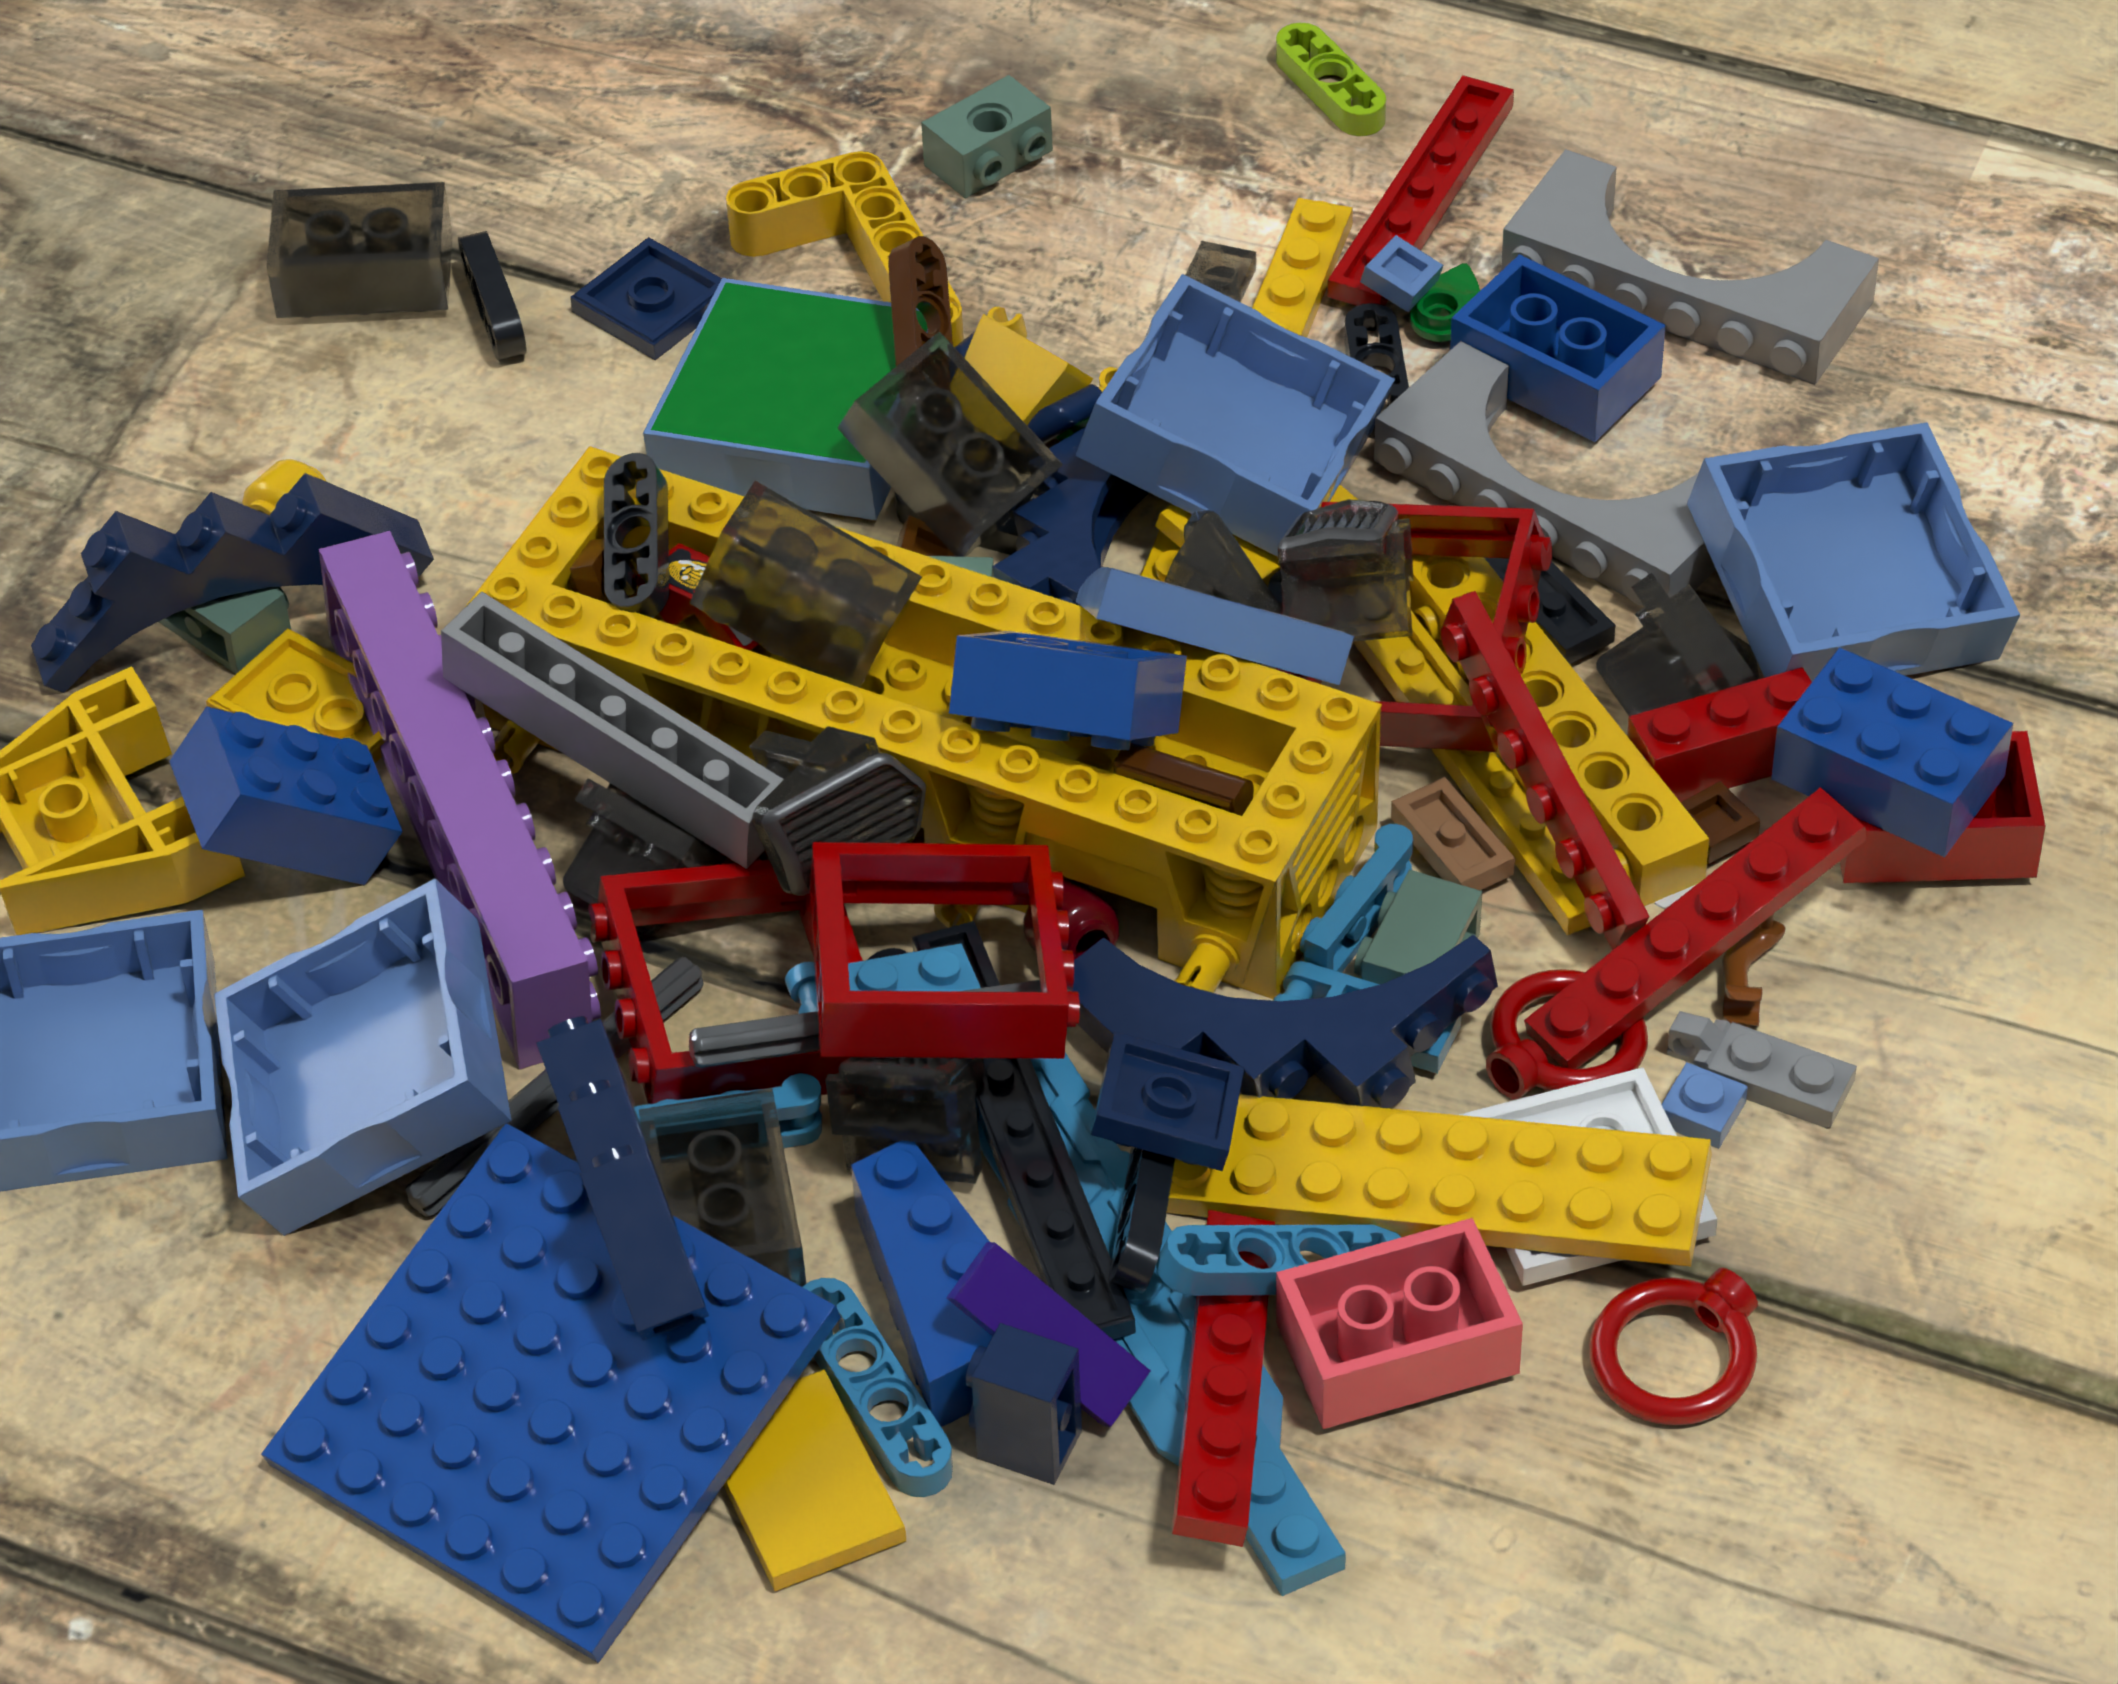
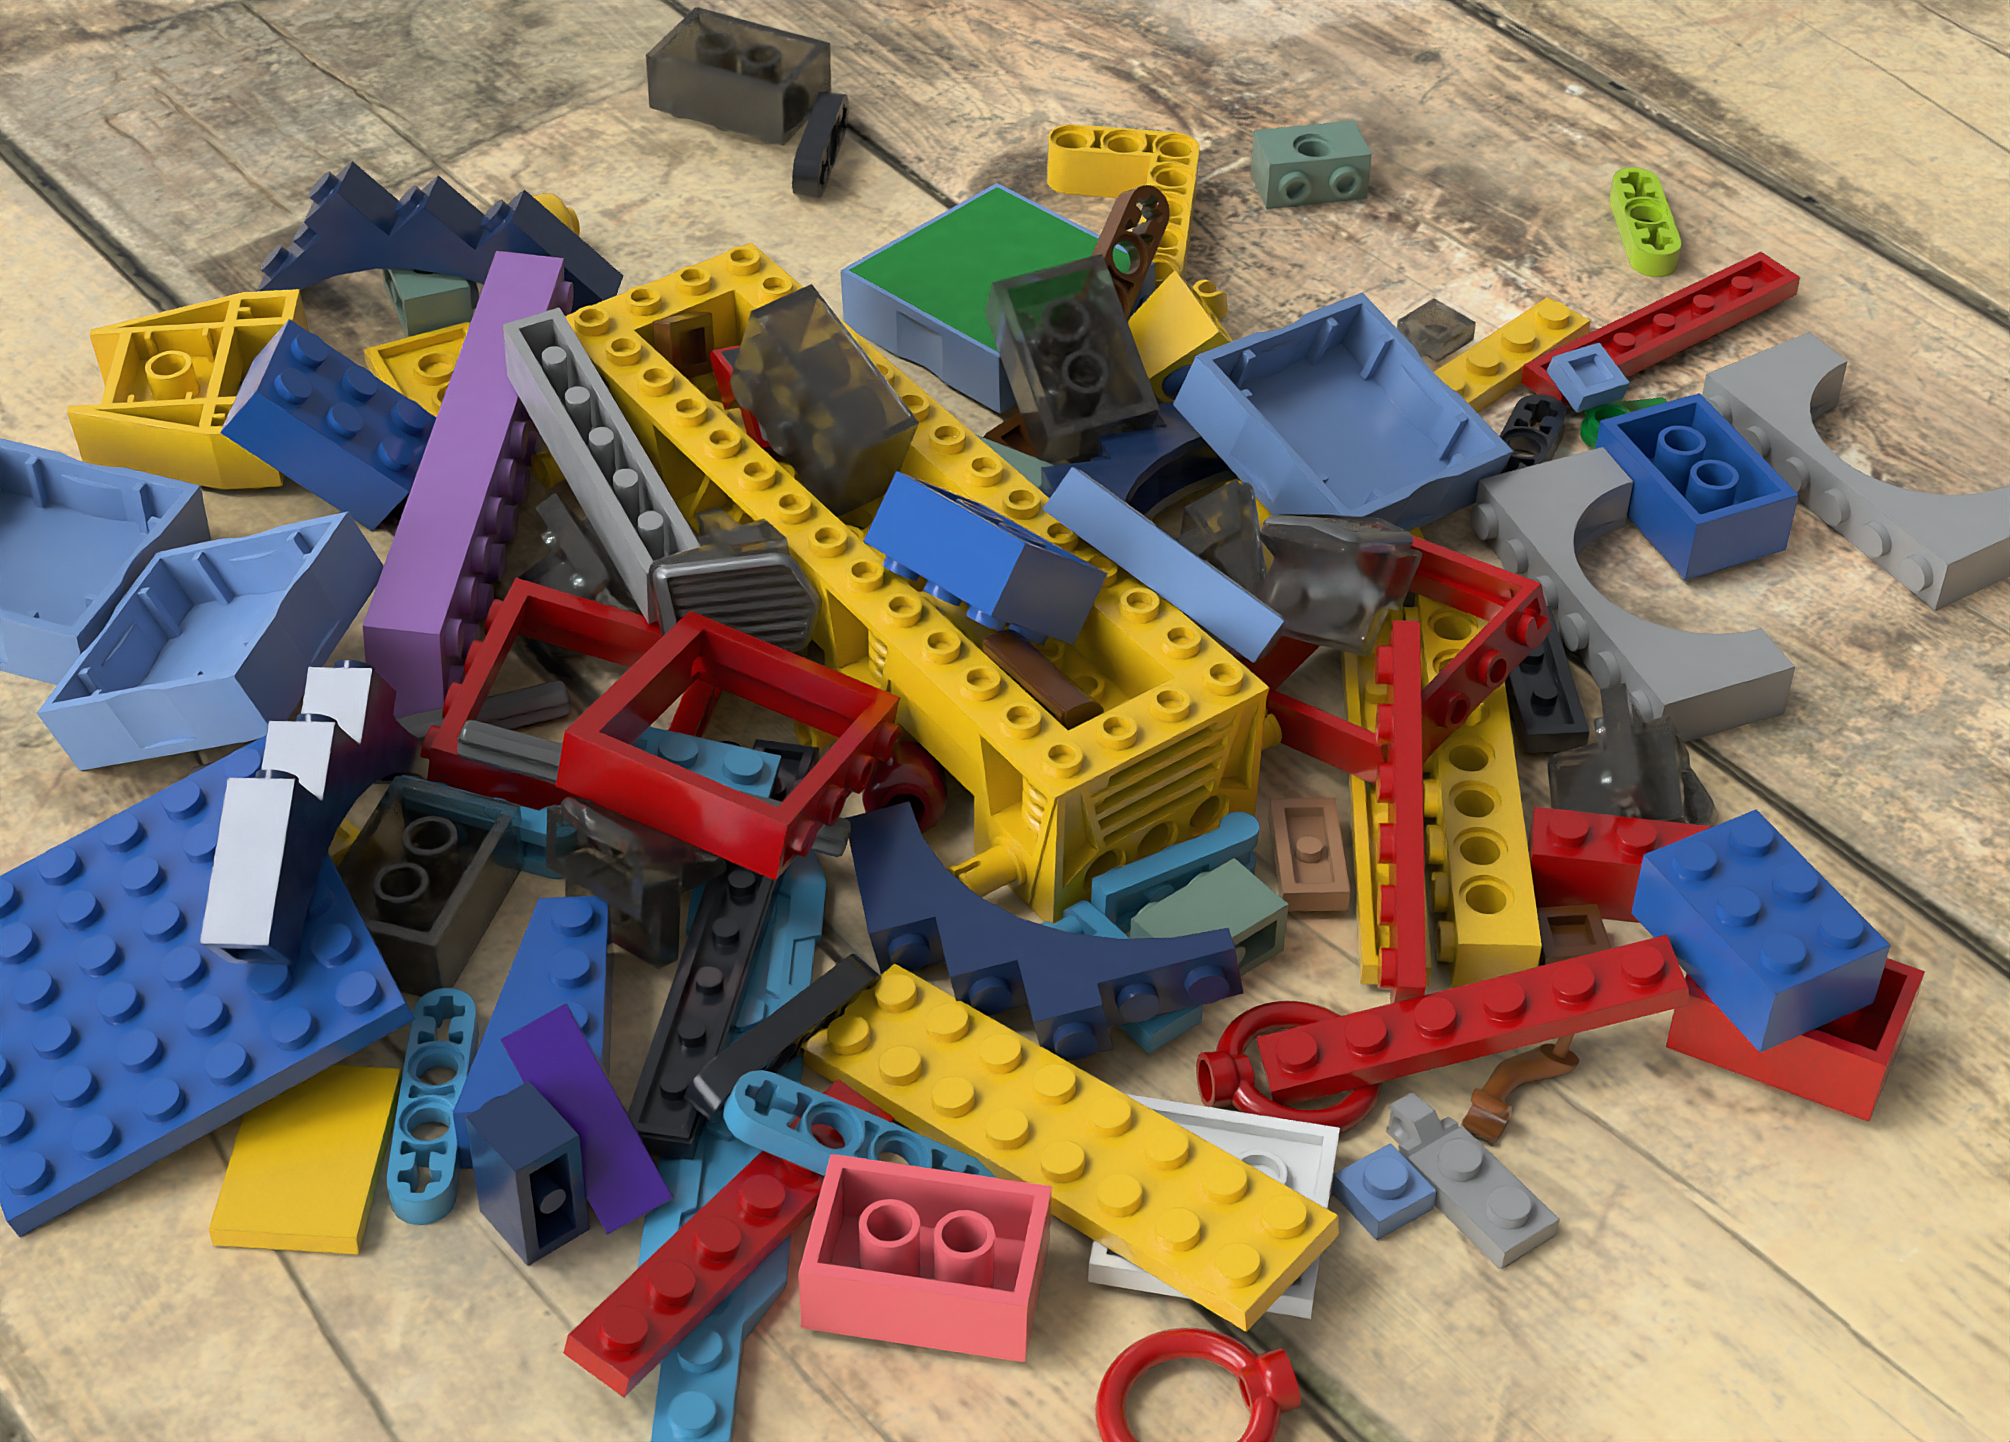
camera: 25 degrees right, 5 degrees down
(622, 516) = (706, 346): black beam -> none
(648, 298) = (939, 182): dark blue tile -> none
(1168, 1101) = (848, 960): dark blue plate -> none
(1854, 553) = (1858, 753): medium blue tile -> none

